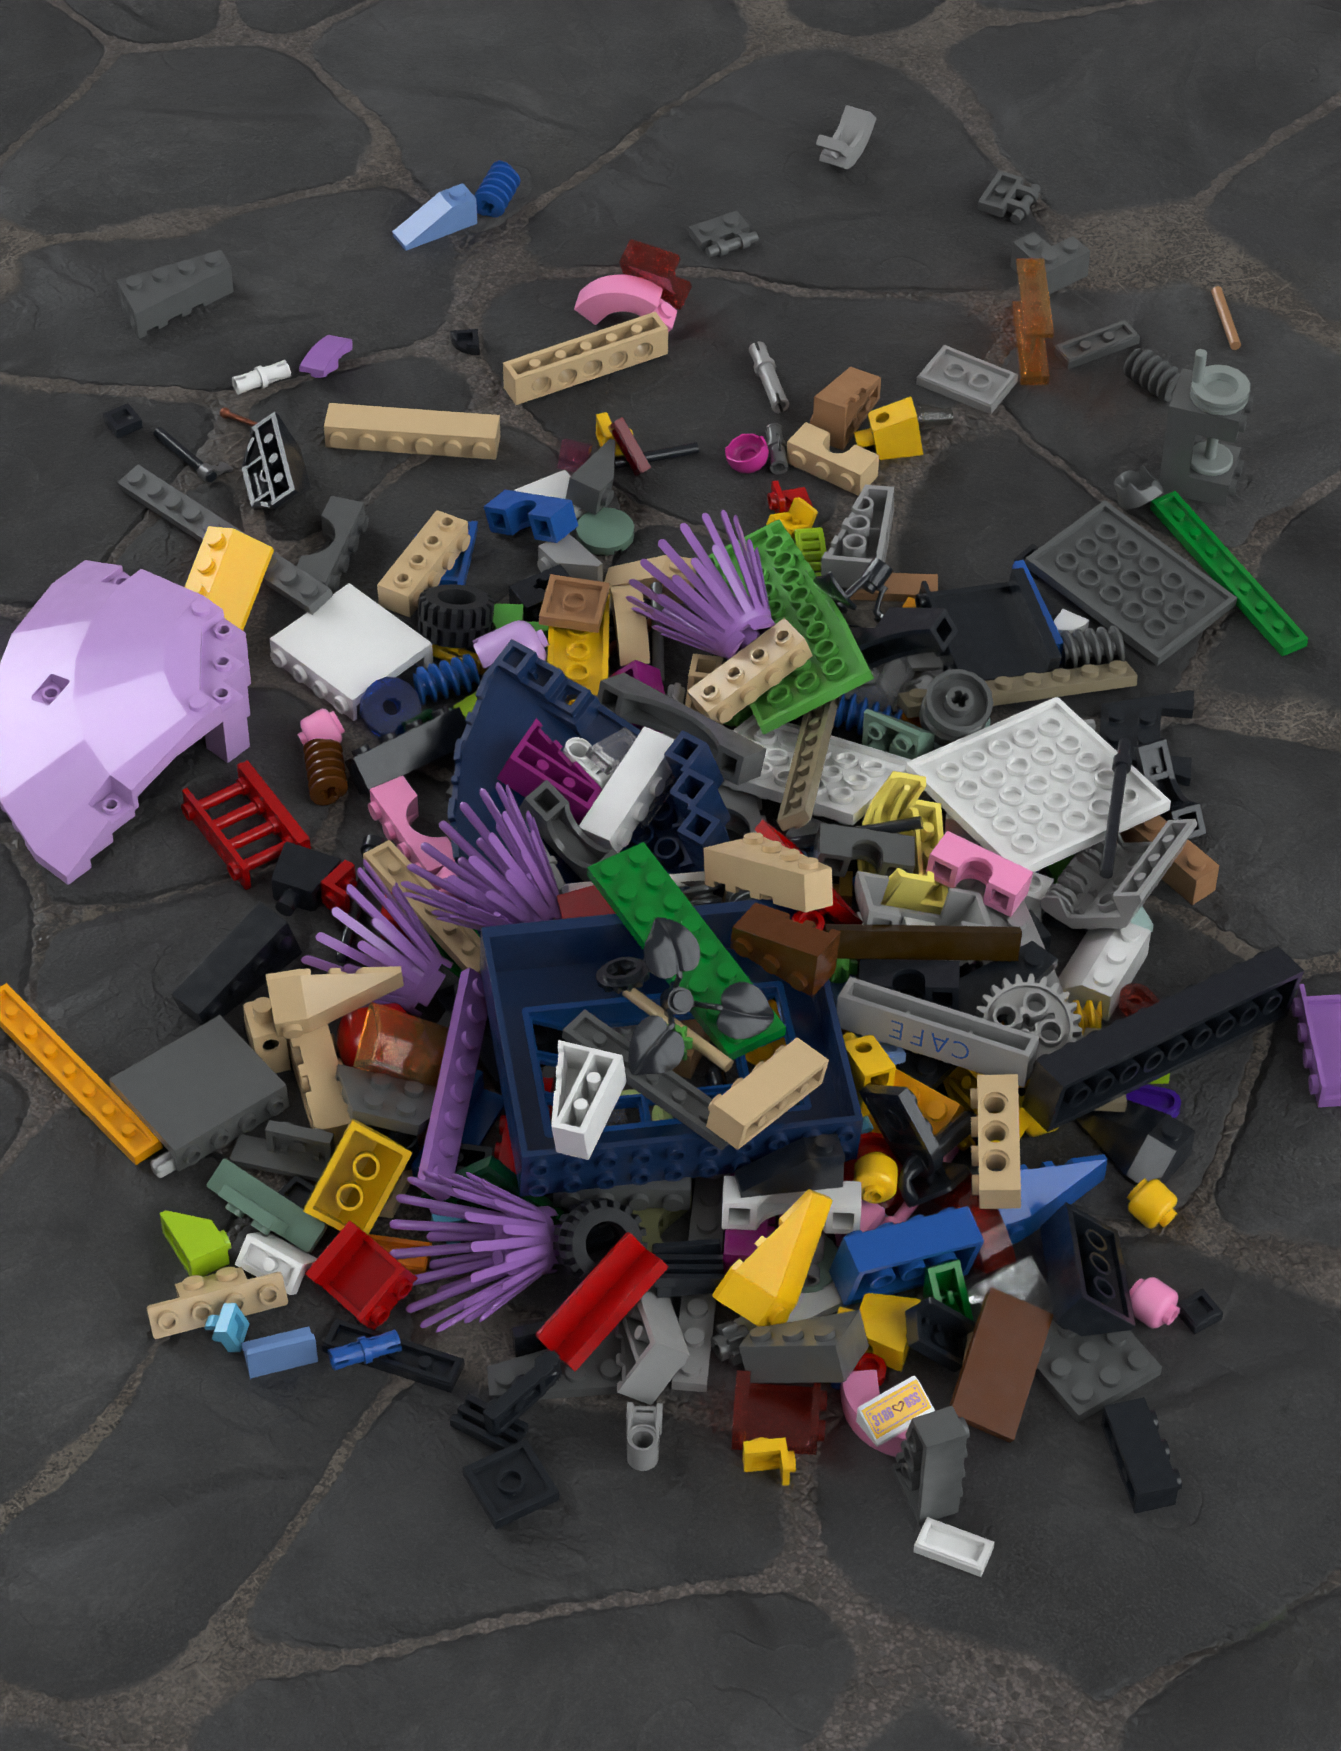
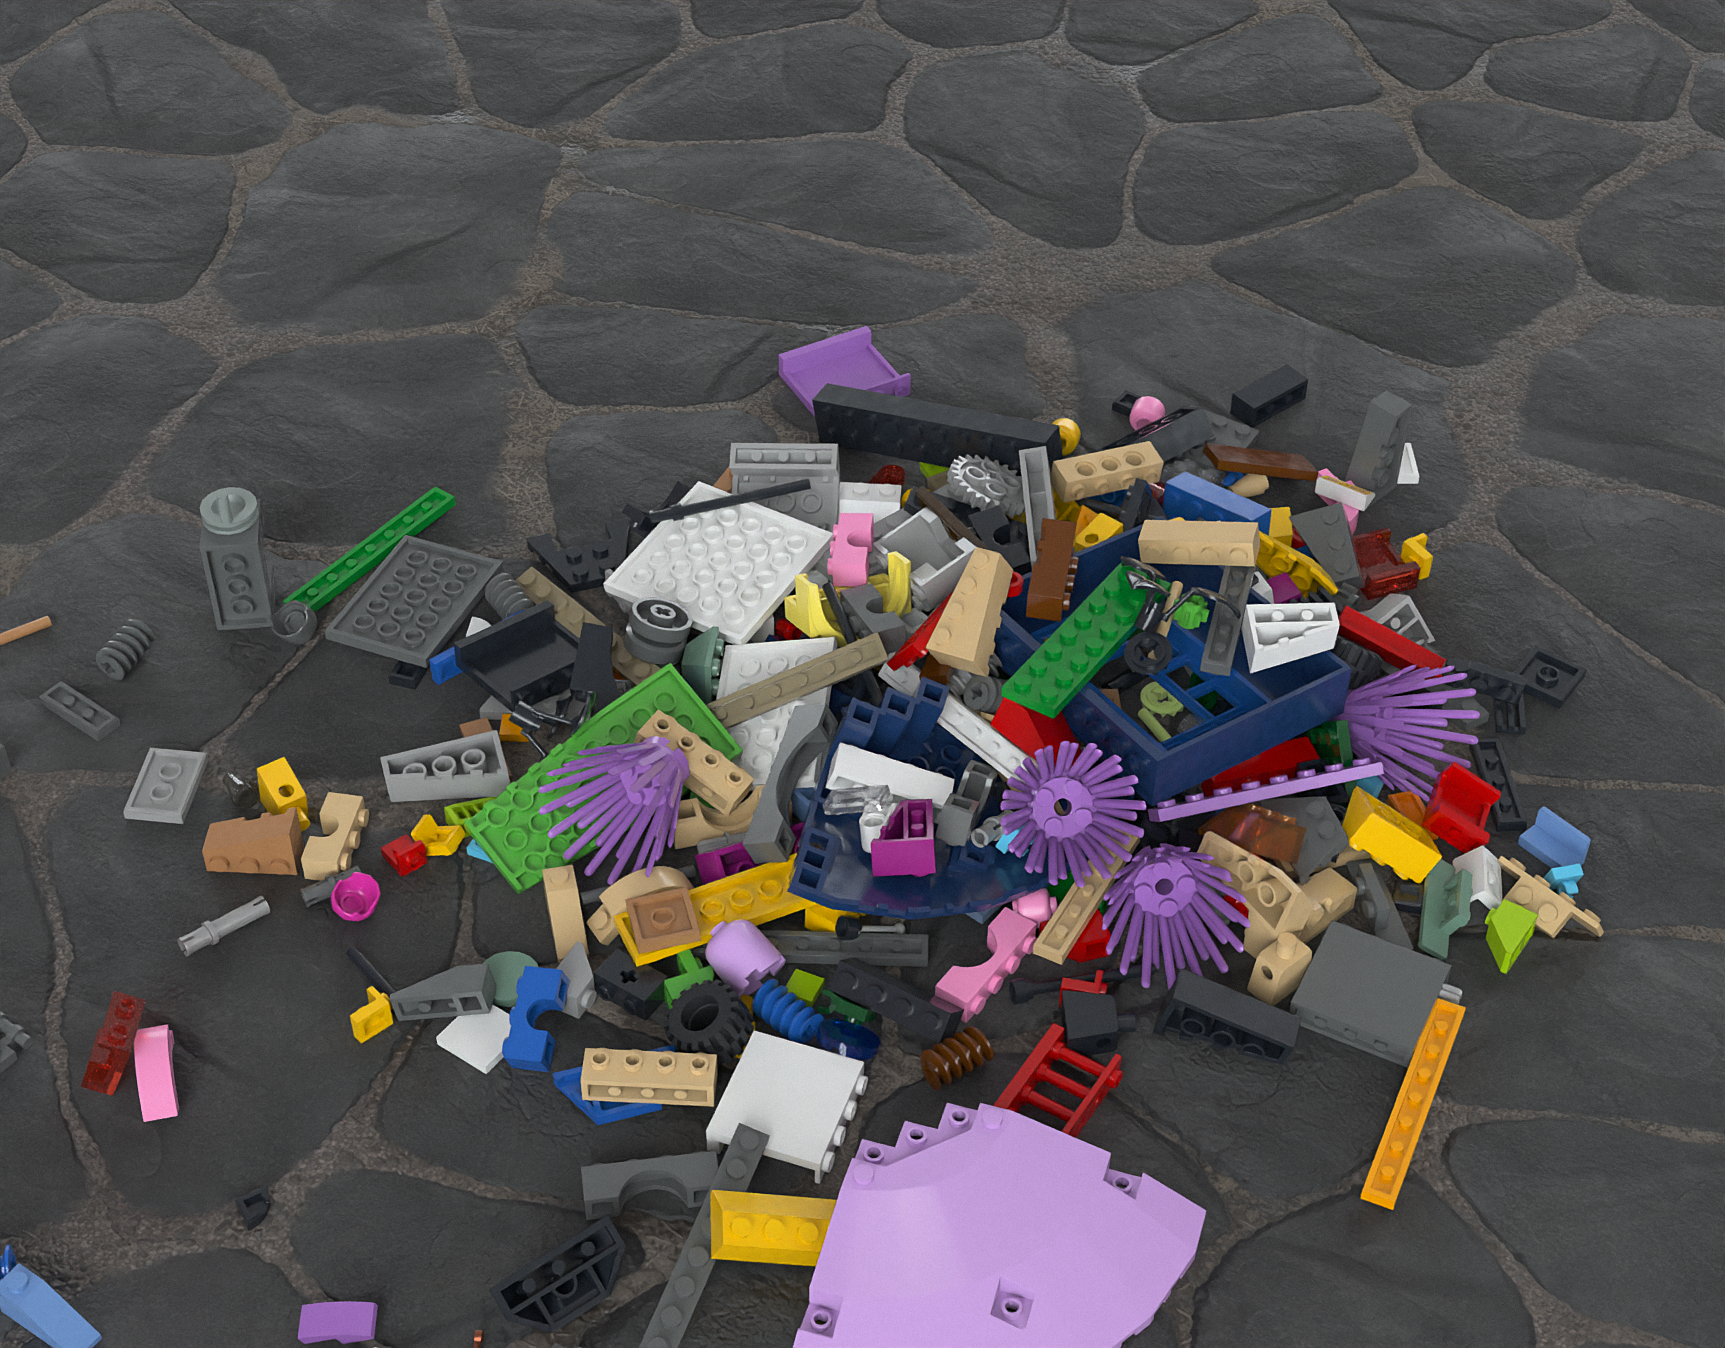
camera: 115 degrees left, 5 degrees down
(321, 726) = (905, 1084): bright pink head -> none
(364, 1350) = (1519, 785): blue pin -> none
(412, 431) = (436, 1190): tan brick -> none
(573, 454) = (414, 1033): clear pink tile -> none
(585, 358) = (264, 1070): tan brick -> none
(629, 446) = (395, 976): dark red tile -> none
(643, 1430) = (1452, 621): light grey piece -> none
(938, 1332) = (1254, 491): black bracket -> none
(1032, 321) = (93, 755): clear orange fence -> none

